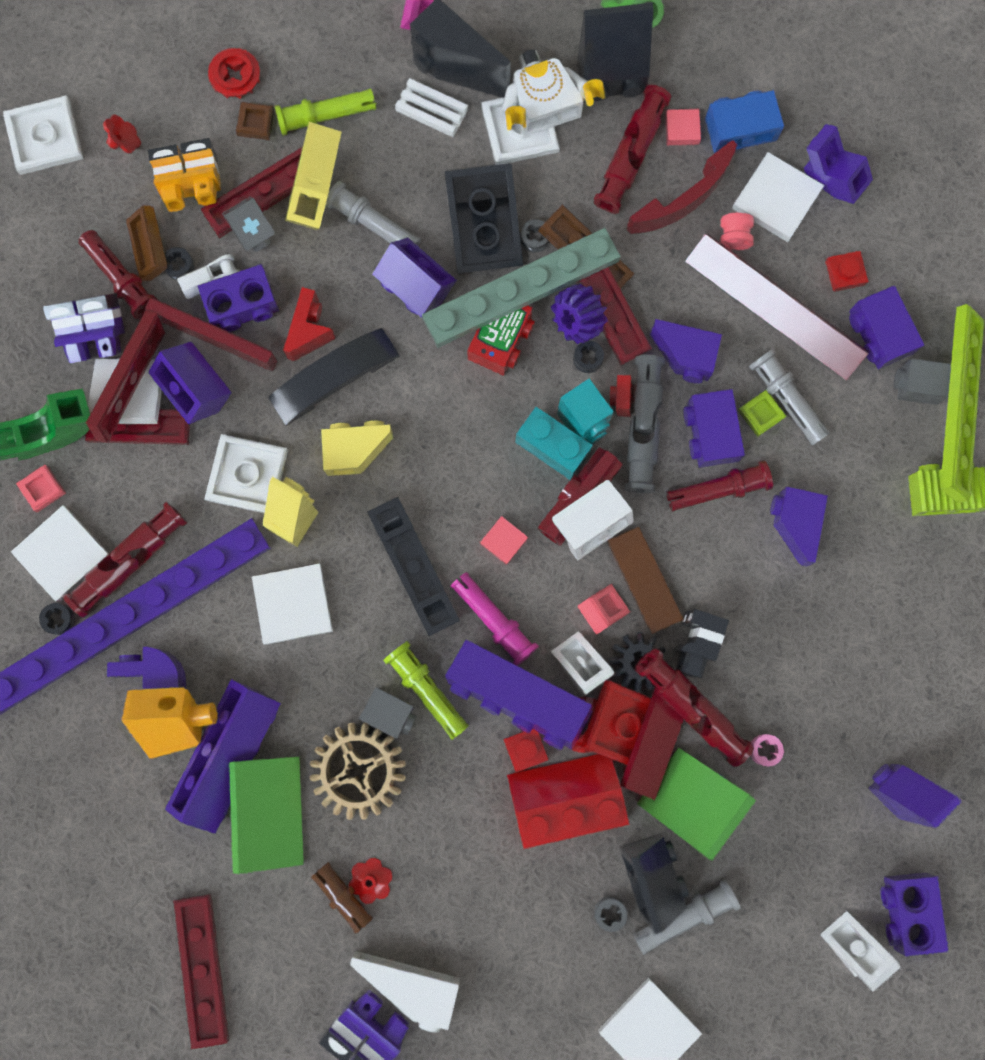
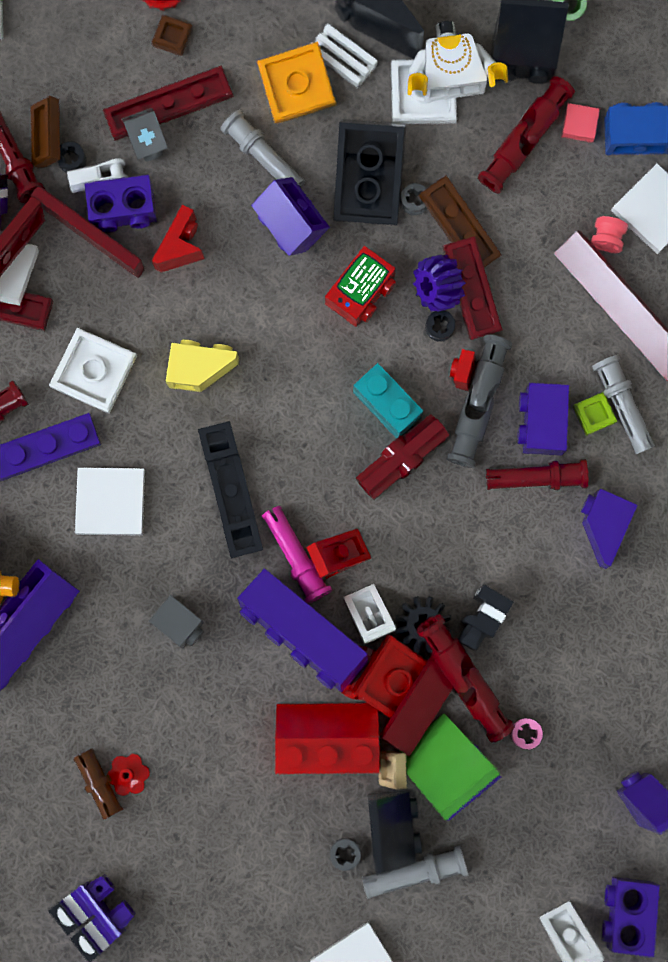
camera: 15 degrees right, 0 degrees up
(121, 134) = (43, 23): red plant -> none
(186, 177) = (96, 73): light orange hips -> none
(189, 382) = (58, 273): dark purple brick -> none
(266, 814) = (44, 691): bright green tile -> none
(288, 510) = (124, 412): light yellow slope -> none
(300, 115) = (224, 39): lime pin -> none
(313, 176) = (215, 100): light yellow slope -> none
(332, 373) = (194, 291): black slope -> none
(365, 785) = (142, 685): tan gear -> none
(391, 143) = (296, 82): none -> light orange tile
(417, 678) = (211, 594): lime pin -> none
(417, 992) = (147, 884): white slope -> none
(504, 540) = (321, 483): coral tile -> none
(521, 287) = (388, 247): sand green plate -> none
(525, 750) = (299, 684): red plate -> none
(537, 608) = (338, 553): none -> red slope
(585, 412) = (423, 378): teal brick -> none
(593, 519) = (409, 481): white panel -> none
(603, 609) = (402, 568): coral slope -> none
(641, 817) = (392, 769): none -> tan tile
(645, 580) = (447, 549): reddish brown tile -> none
(655, 216) = (533, 204): dark red slope -> none
(687, 349) = (535, 338): dark purple slope -> none

